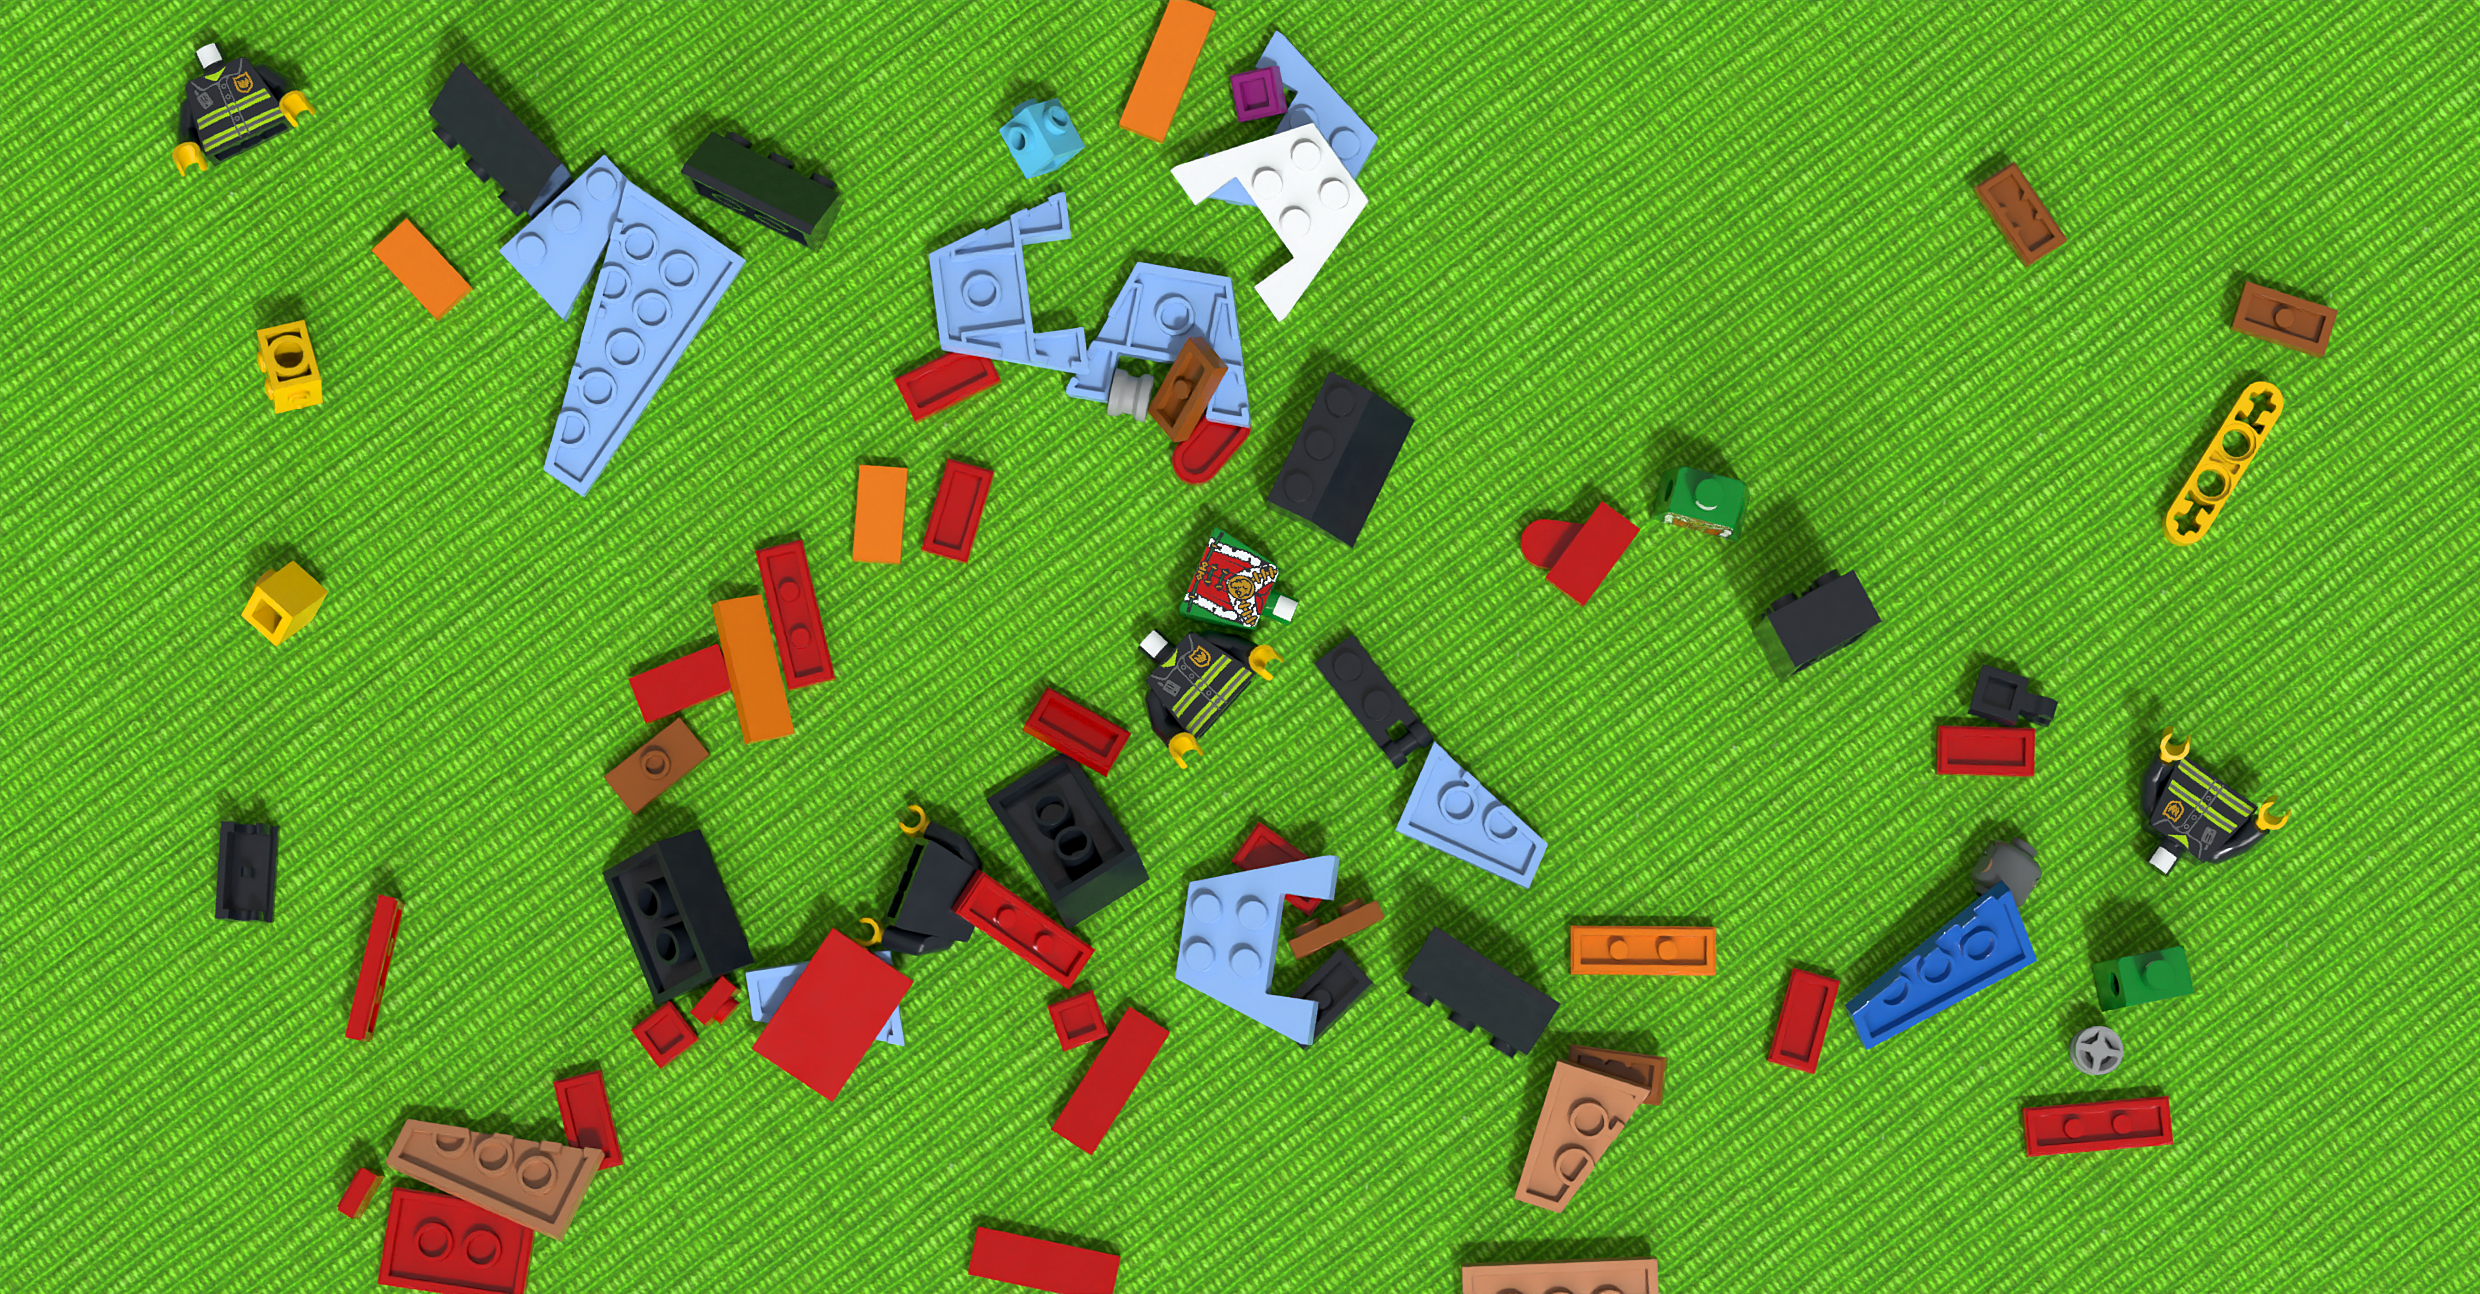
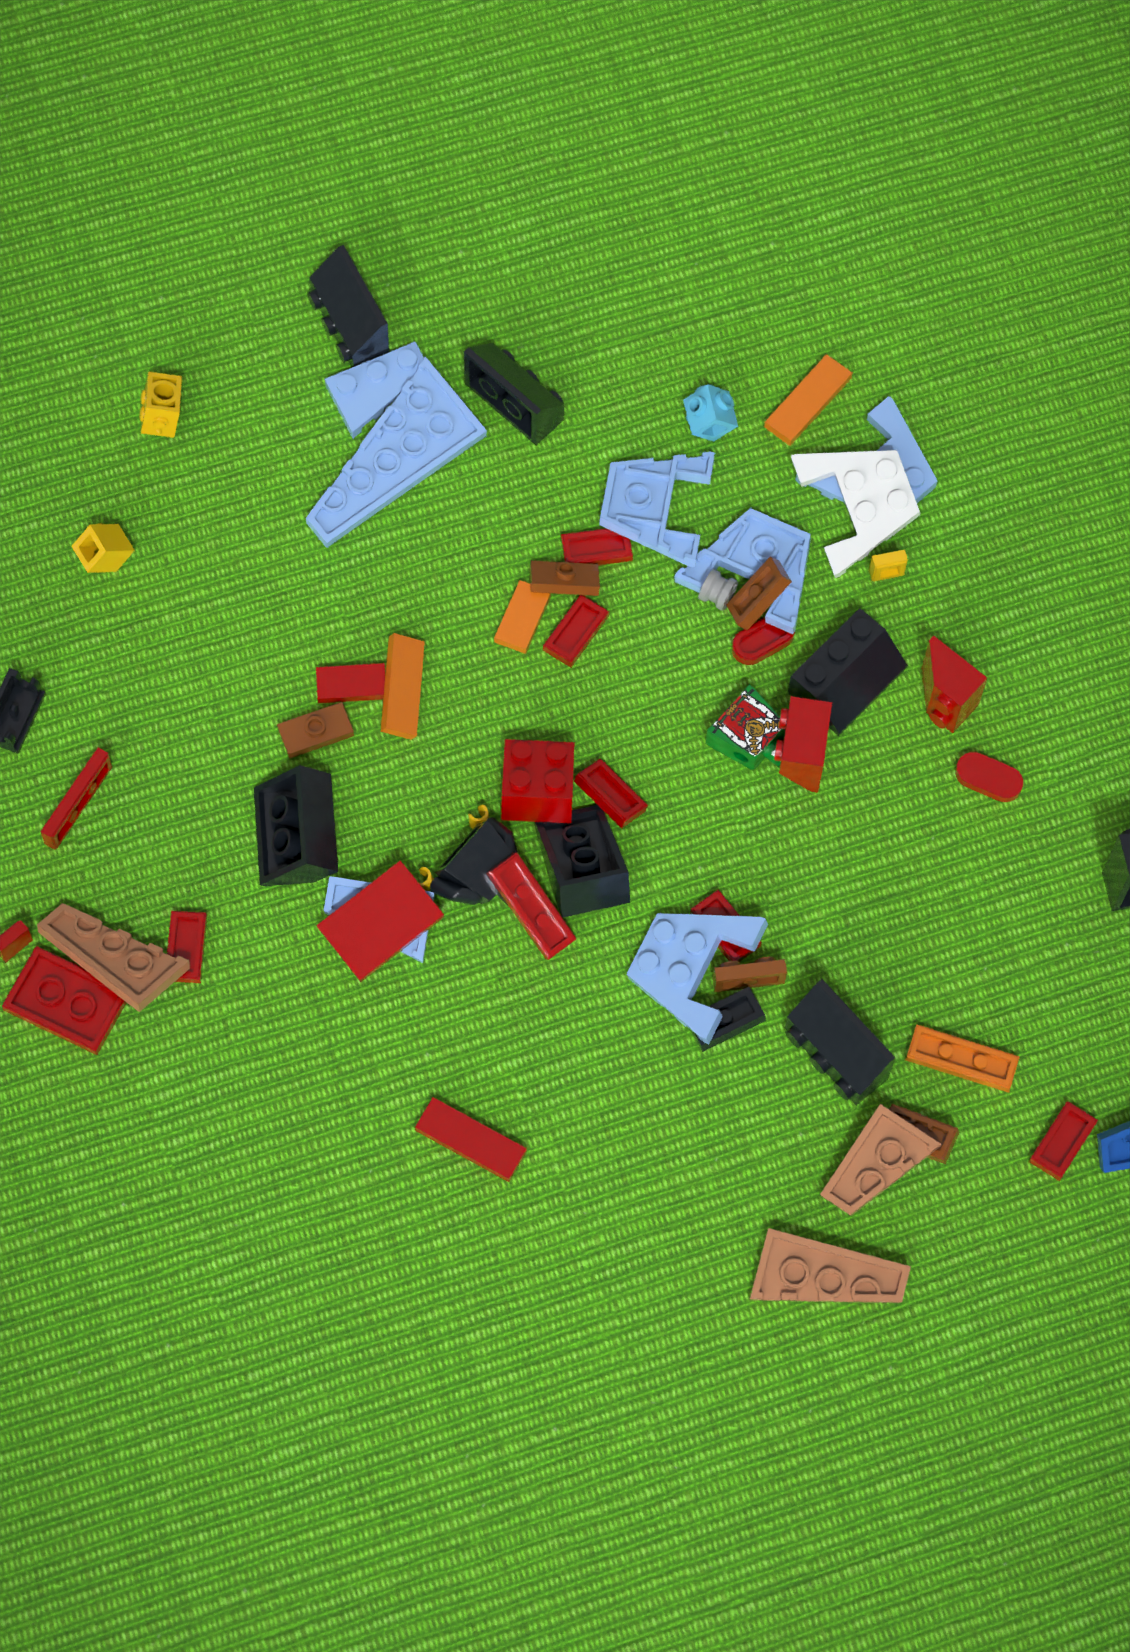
camera: 15 degrees right, 15 degrees down
(233, 109) = (183, 243): black torso -> none
(422, 269) = (269, 377): orange tile -> none
(665, 1034) = (259, 905): red tile -> none
(717, 1003) = (302, 891): red plate -> none
(795, 615) = (443, 663): red tile -> none
(919, 443) = (564, 578): none -> dark orange plate
(976, 752) = (537, 781): none -> red brick
(1078, 1020) = (548, 983): red tile -> none
(1110, 1081) = (558, 1030): red tile -> none
(1197, 683) = (706, 784): black torso -> none
(1258, 94) = (865, 430): magenta tile -> none
(1312, 588) = (804, 741): none -> red slope
(1348, 286) = (888, 565): none -> yellow tile
(1372, 700) = (822, 835): black plate -> none
(1467, 822) = (862, 932): light blue wing -> none
(1479, 445) = (950, 686): none -> red slope
(1592, 554) = (1005, 782): red tile -> none
(1702, 502) = (1093, 772): green torso -> none

